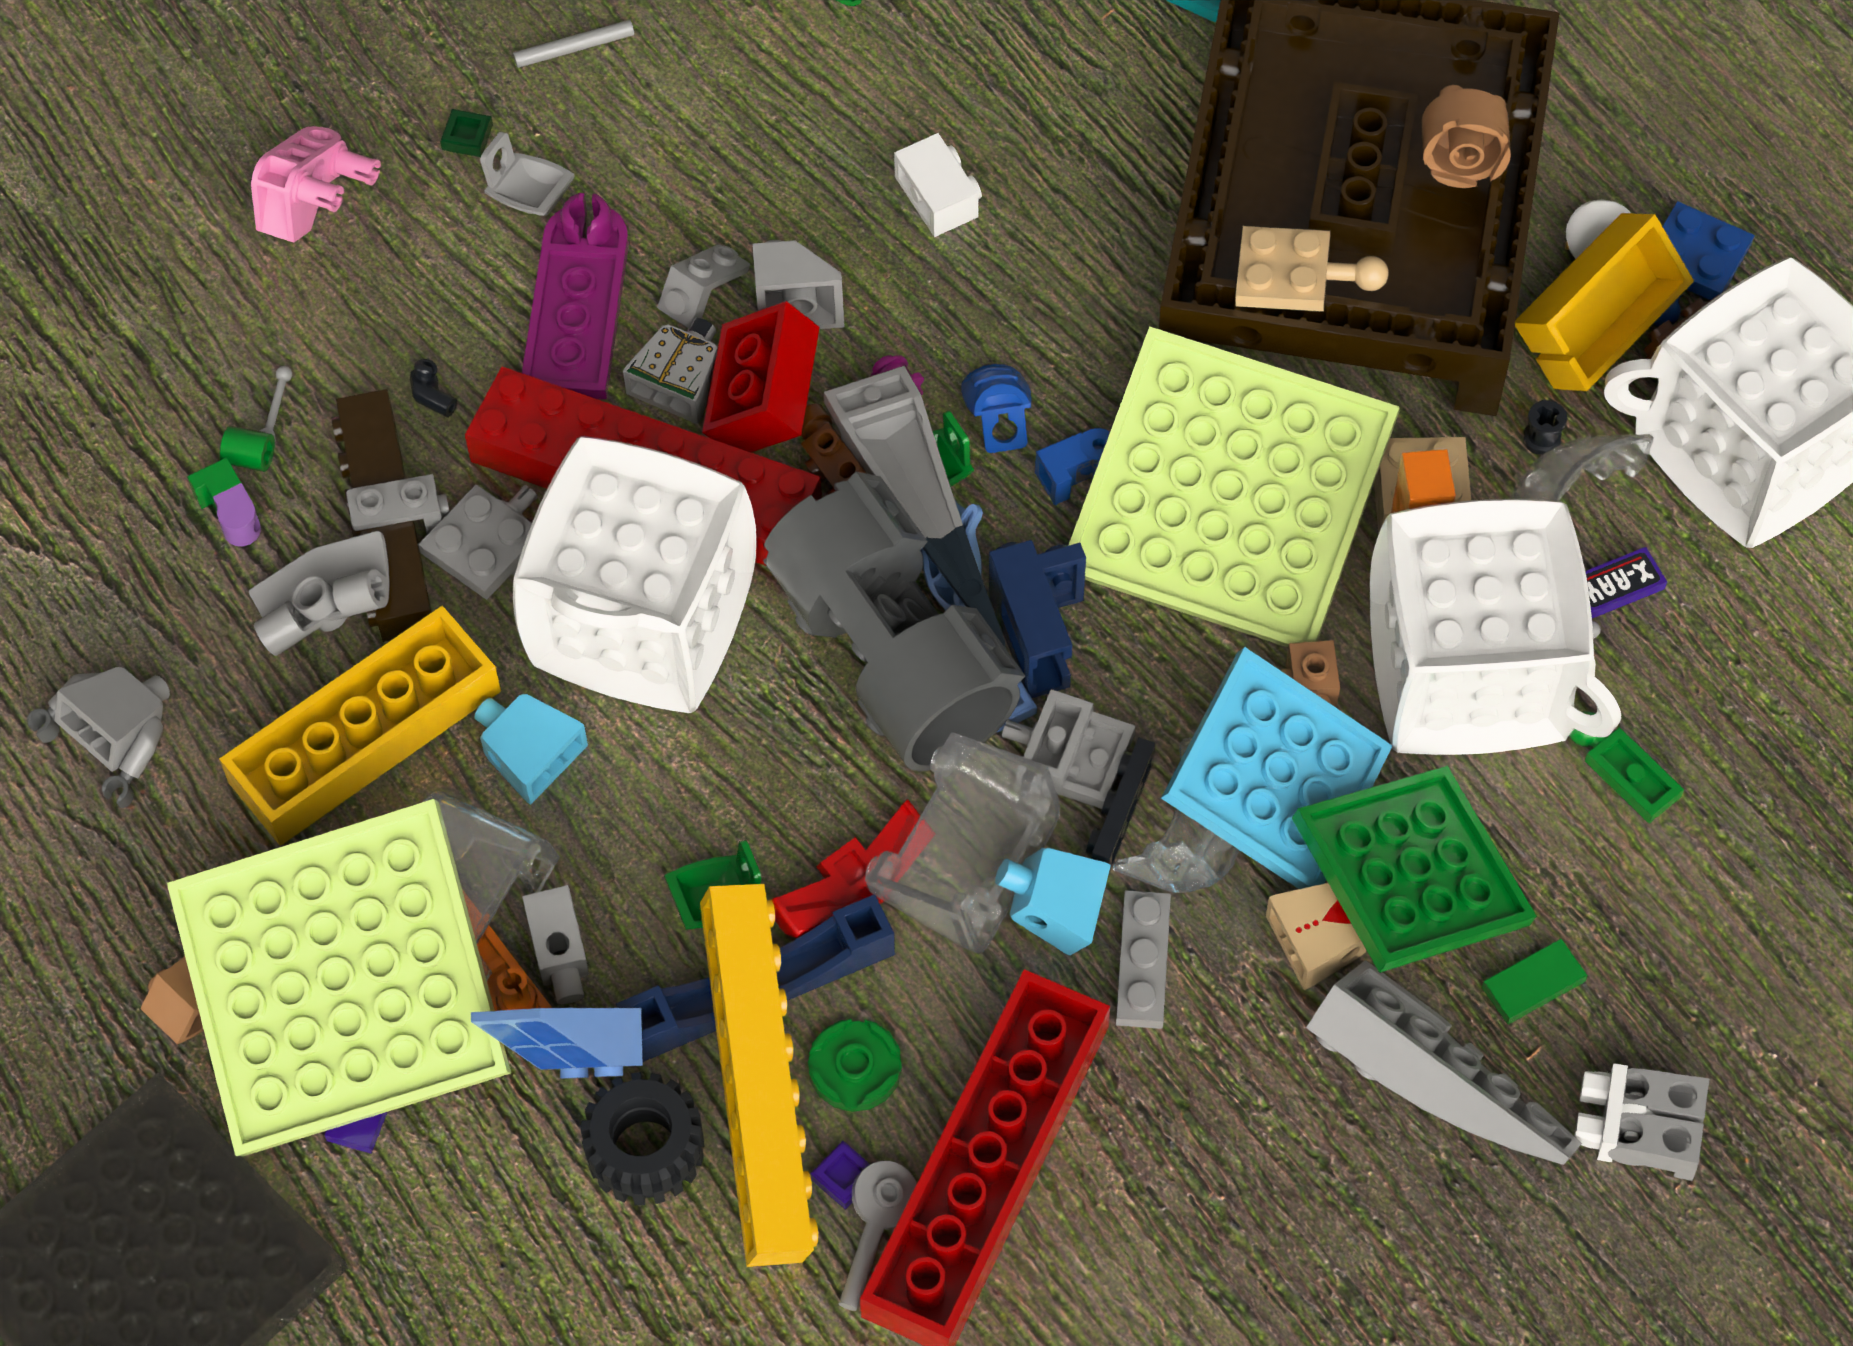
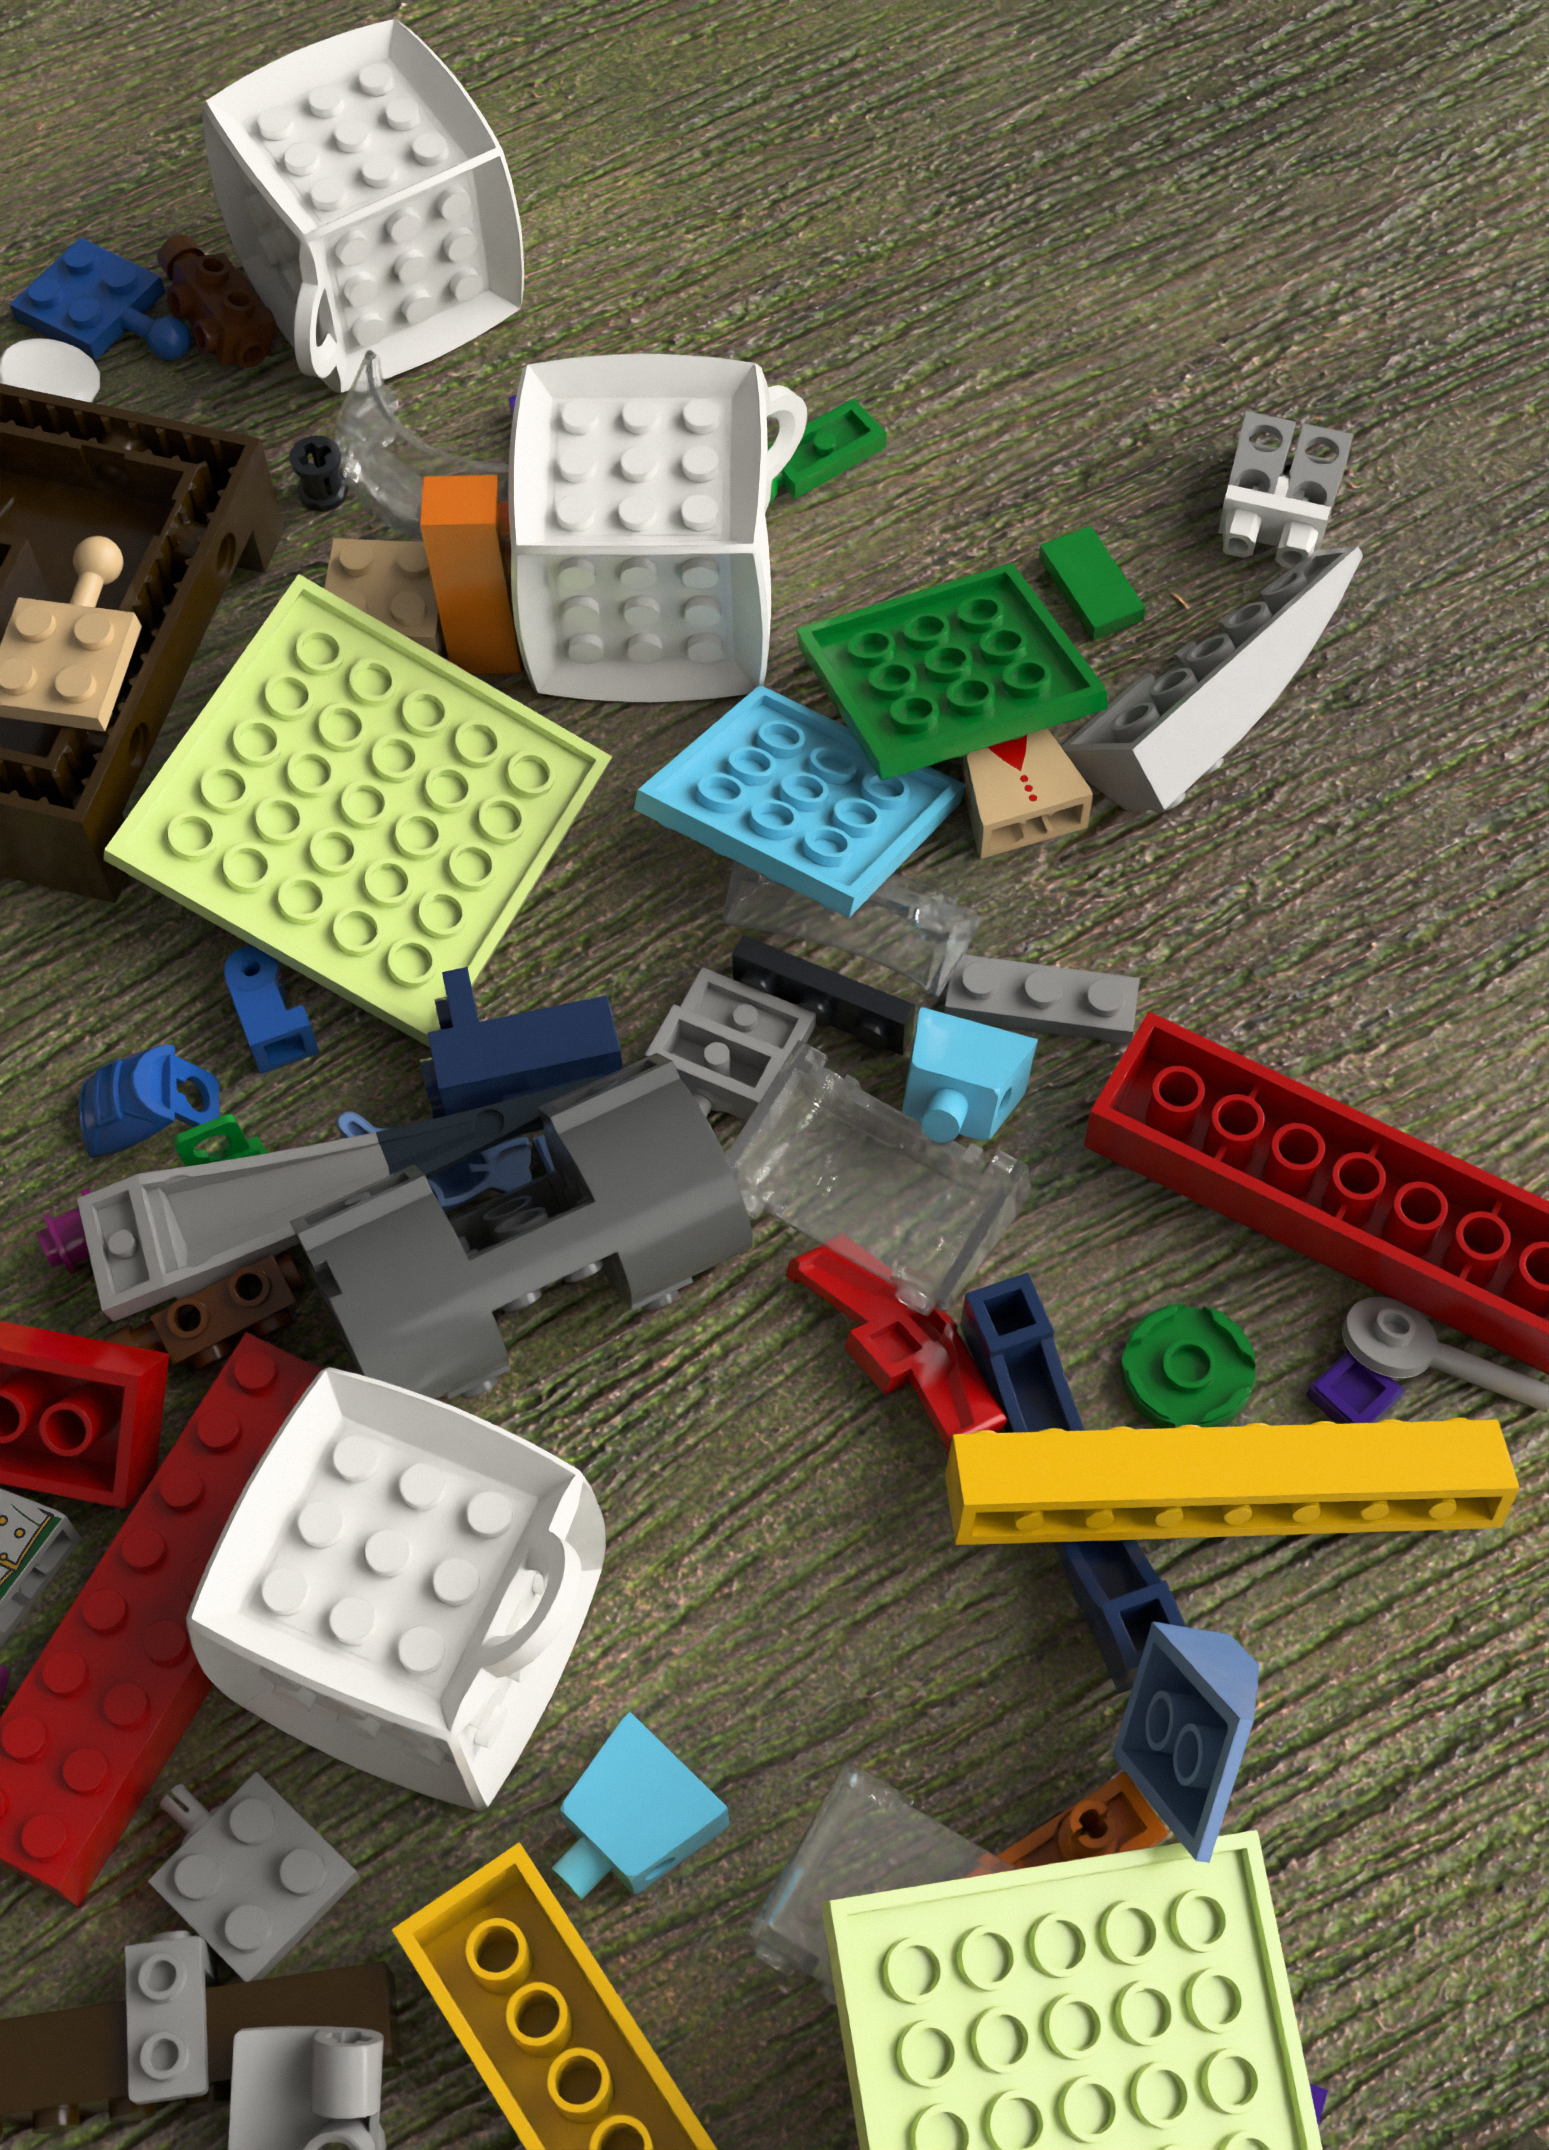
camera: 85 degrees left, 0 degrees up
(554, 931) = (999, 1769): light grey torso -> none
(636, 1103) = (1358, 1614): black tyre -> none
(693, 880) = (911, 1531): green piece -> none
(1315, 668) = (641, 750): medium nougat brick -> none
(1604, 301) = (150, 358): yellow piece -> none

